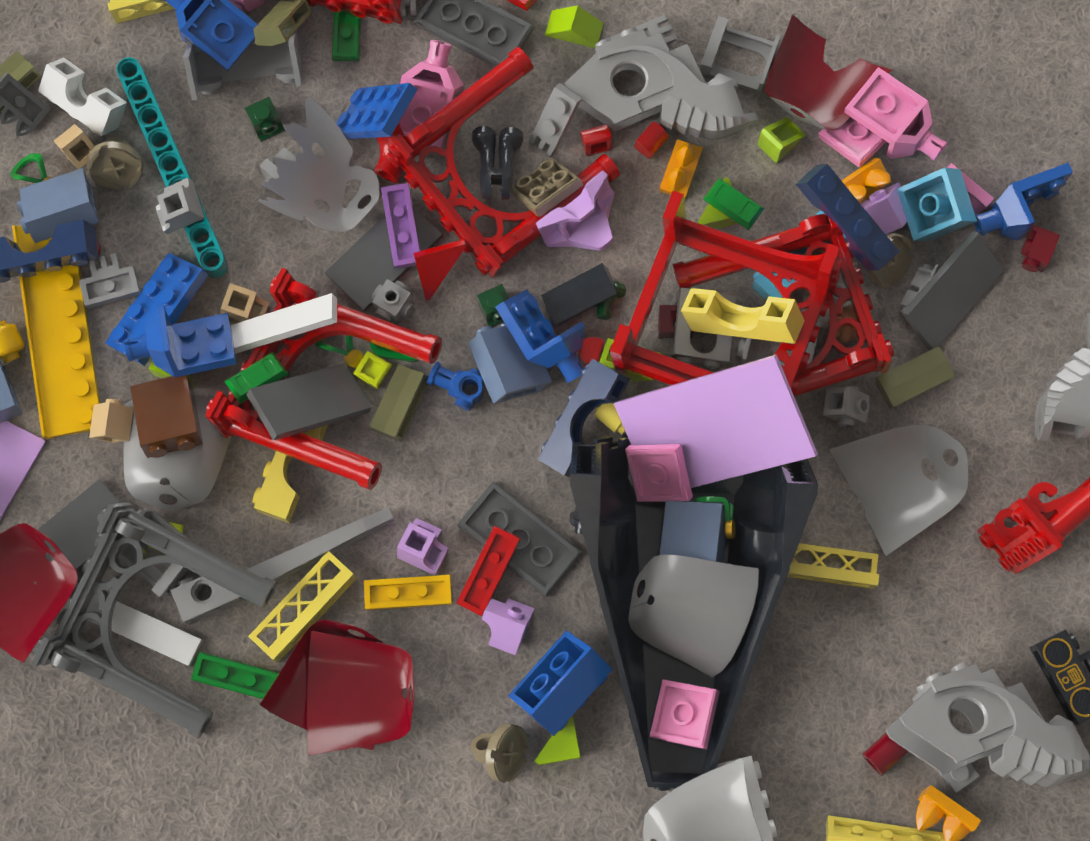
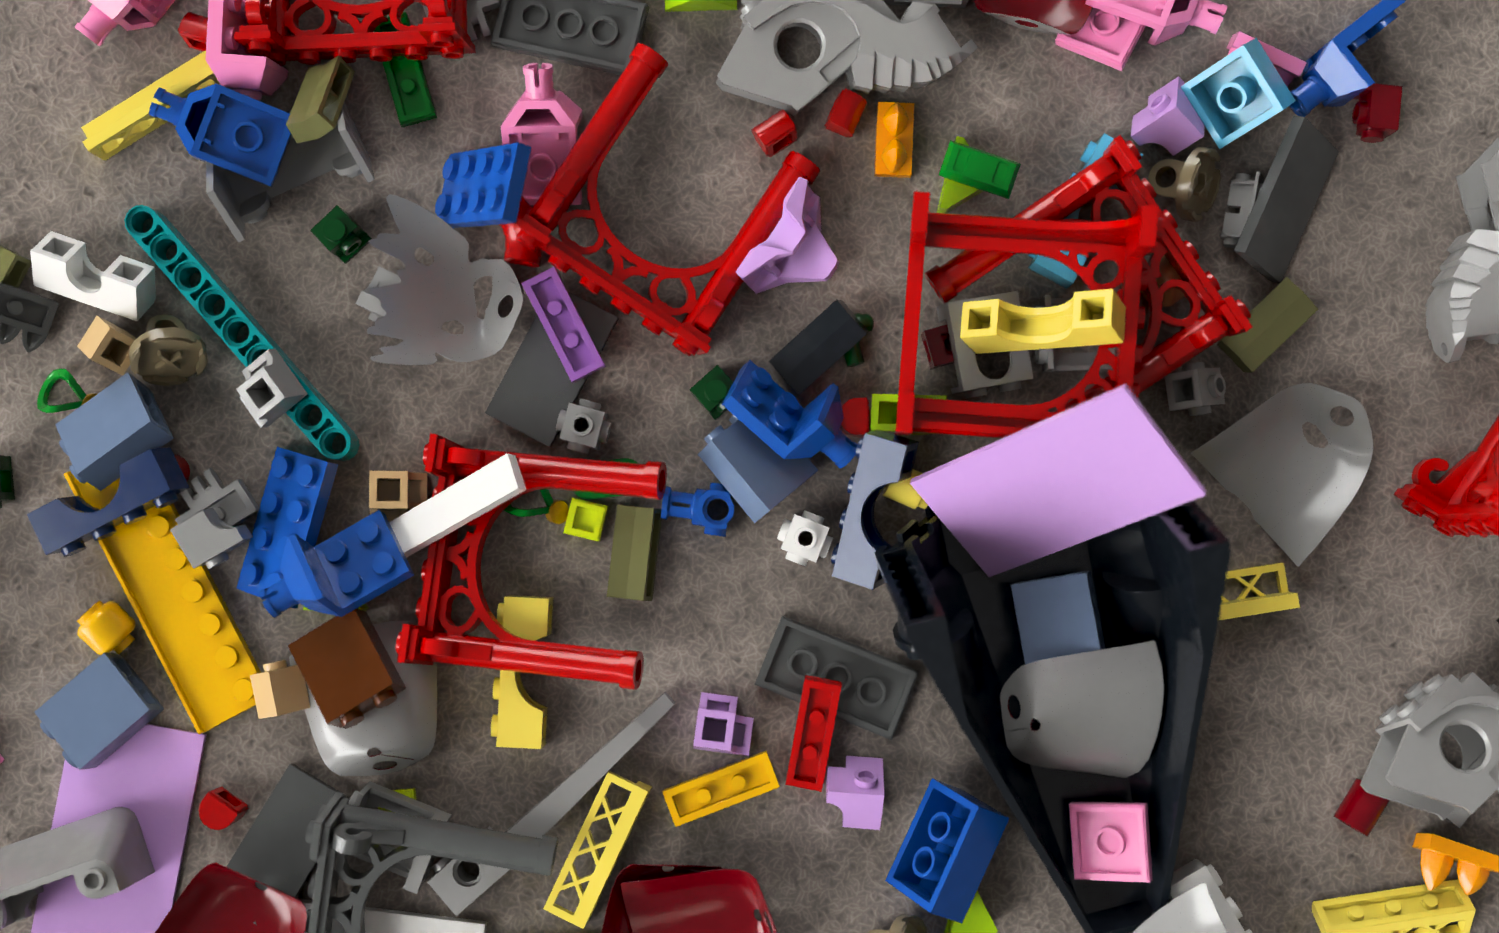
camera: 15 degrees left, 10 degrees up
(38, 495) = (221, 809): none -> red brick
(98, 299) = (208, 539): none -> light grey brick
(260, 373) = (445, 584): green tile -> none
(308, 401) = (521, 594): dark grey tile -> none
(435, 264) = (624, 363): red tile -> none
(509, 143) = (665, 171): black piece -> none
(527, 437) = (789, 535): none -> white brick
(546, 186) = (732, 217): dark tan tile -> none
(555, 118) = (717, 123): light grey hinge -> none
(659, 473) = (992, 553): bright pink plate -> none
(729, 512) = (1089, 565): green piece -> none
(780, 138) = (1009, 61): lime slope -> none
(832, 197) = (1121, 134): dark blue arch -> none
(867, 179) = (1131, 91): light orange tile -> none

